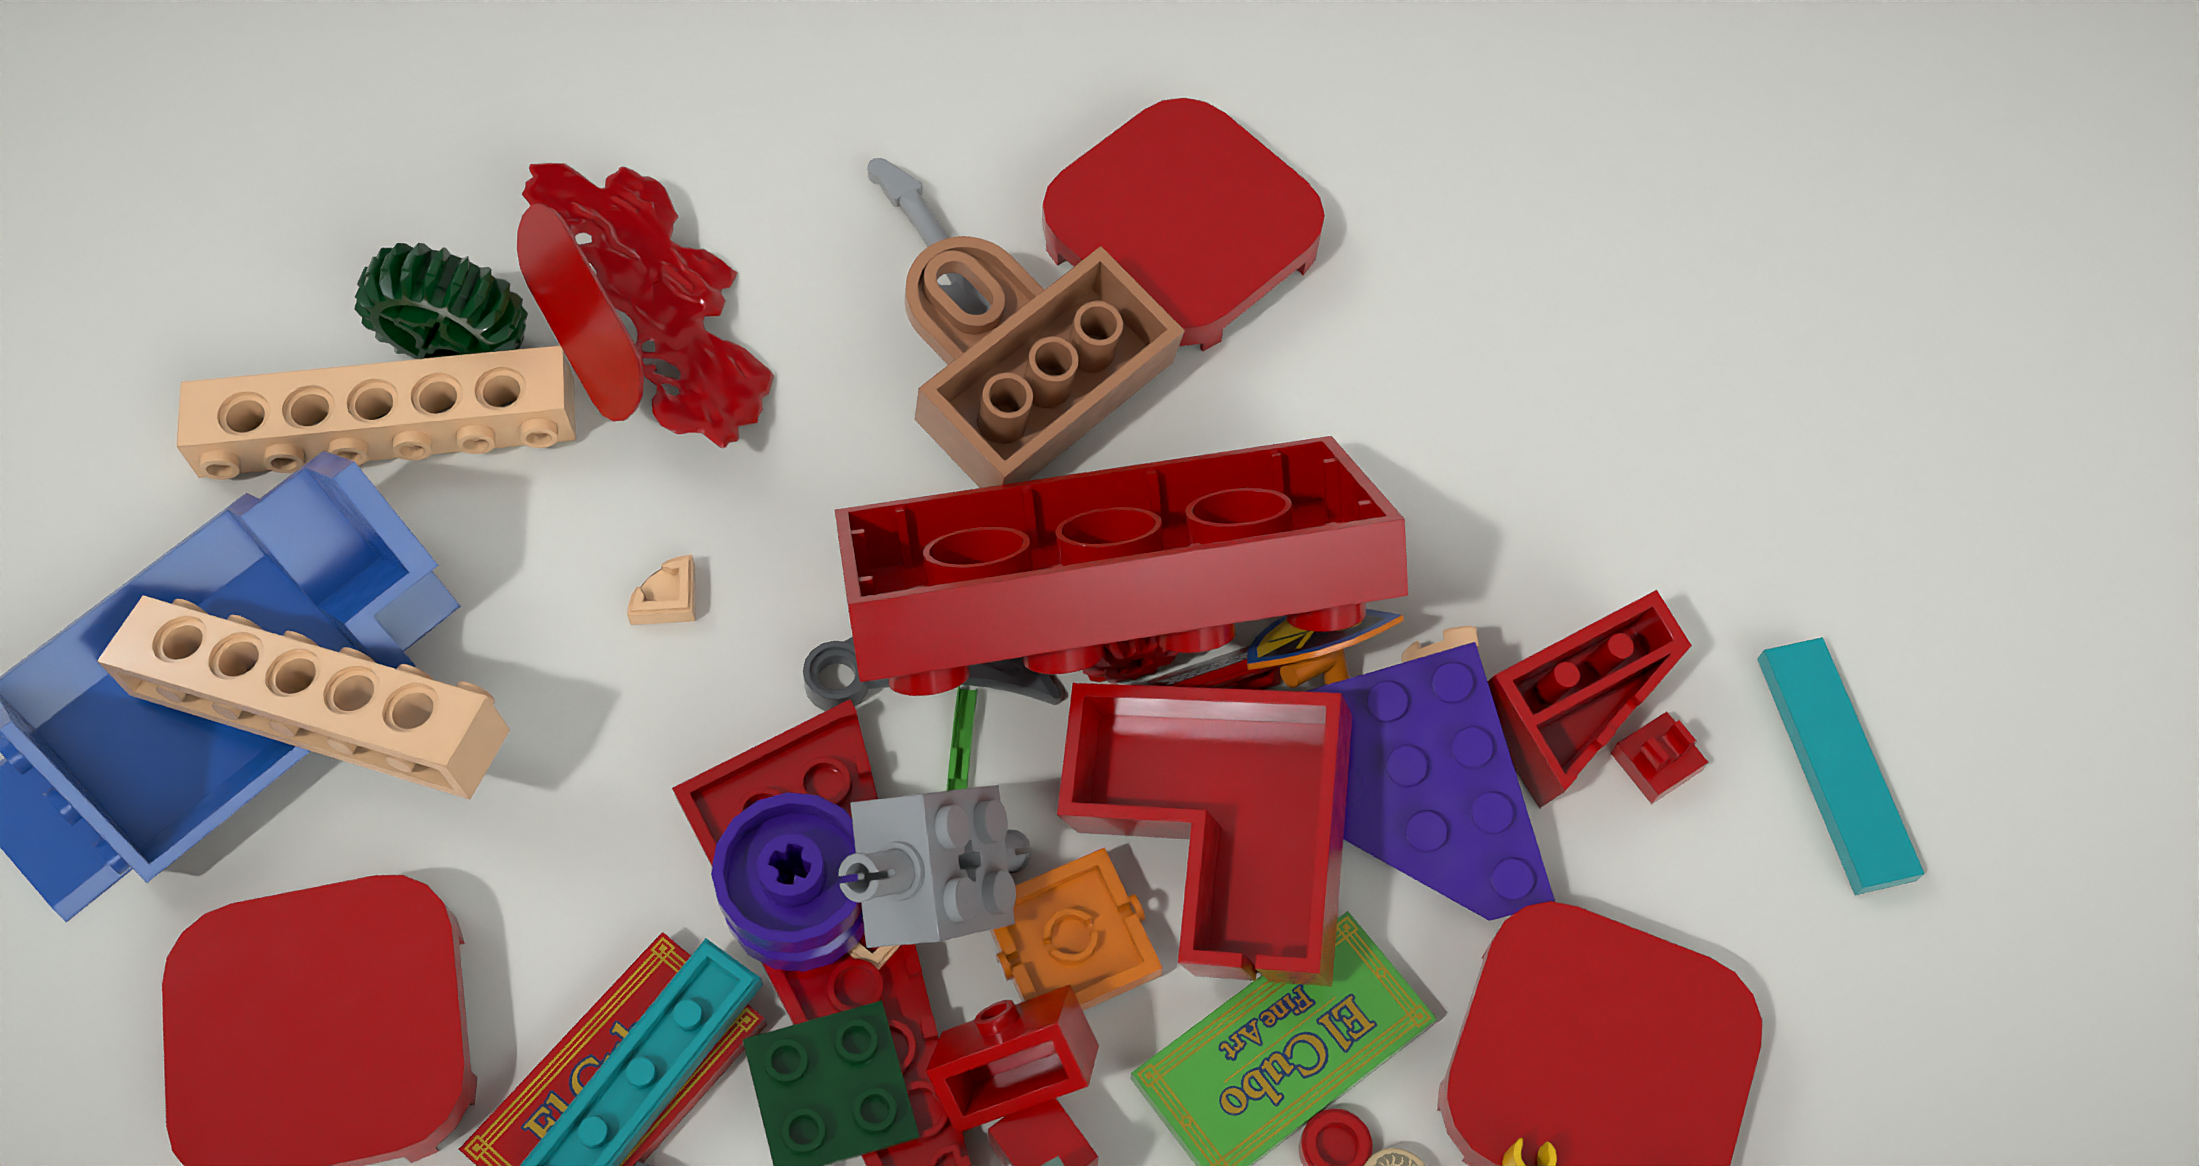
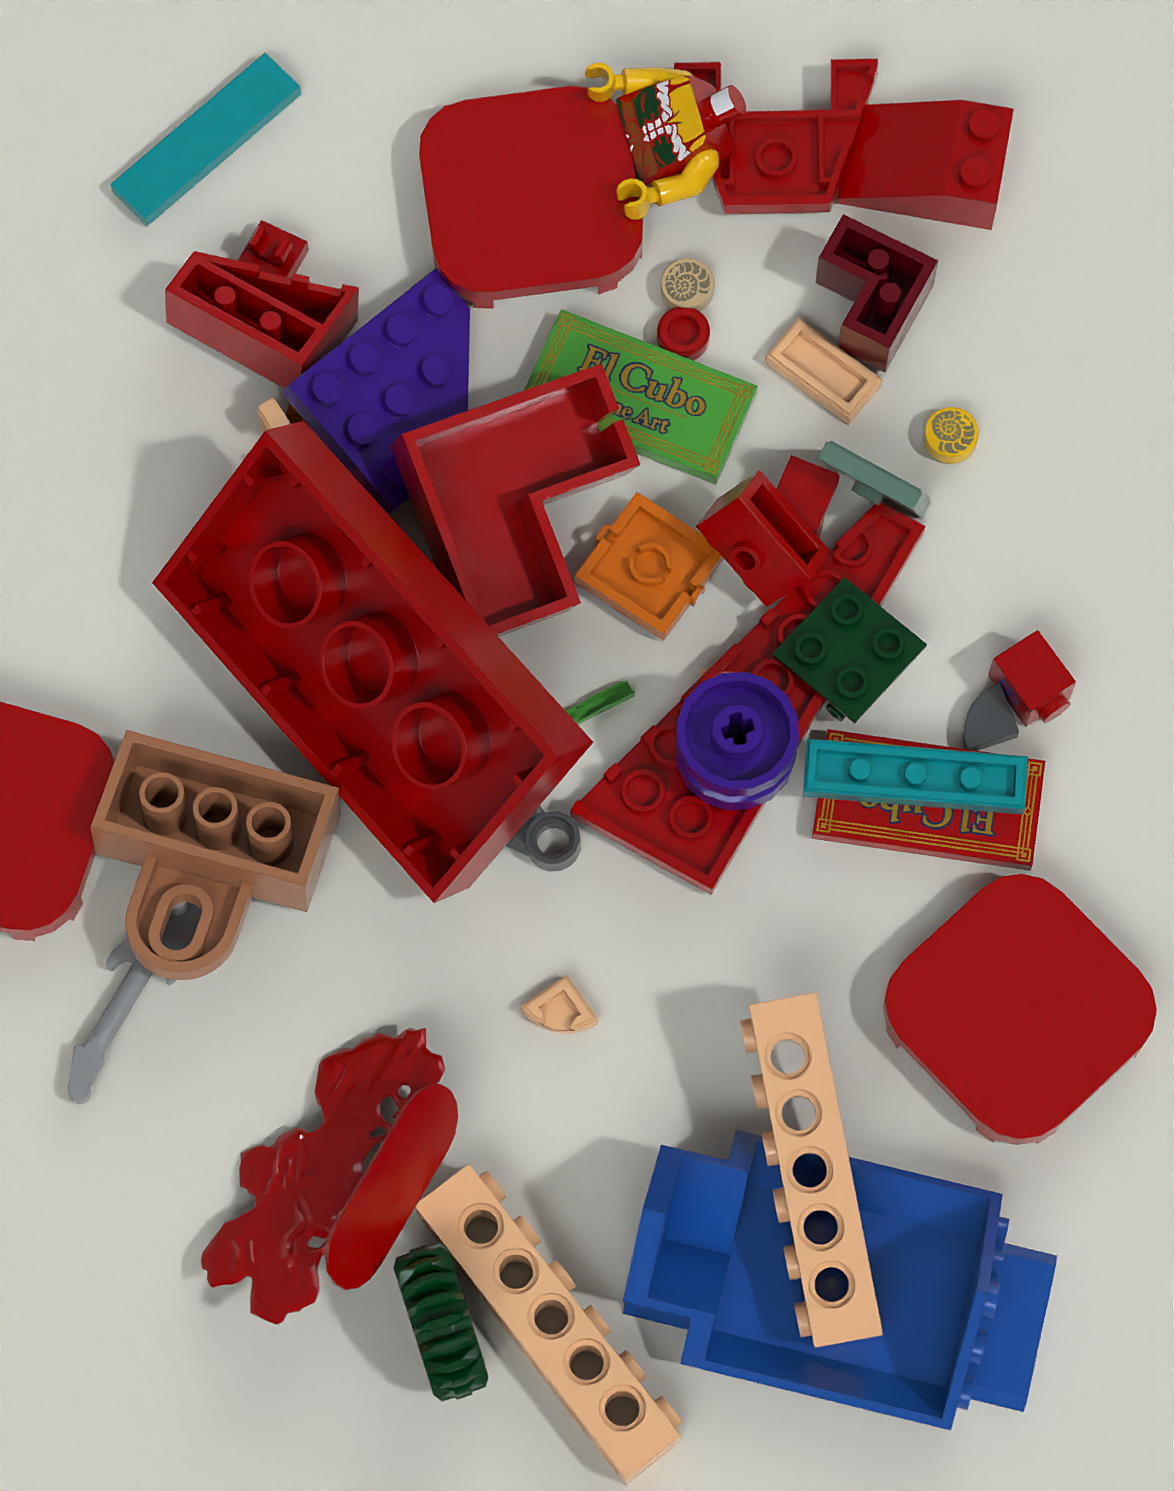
camera: 115 degrees left, 10 degrees up
(933, 866) = (673, 646): light grey brick -> none

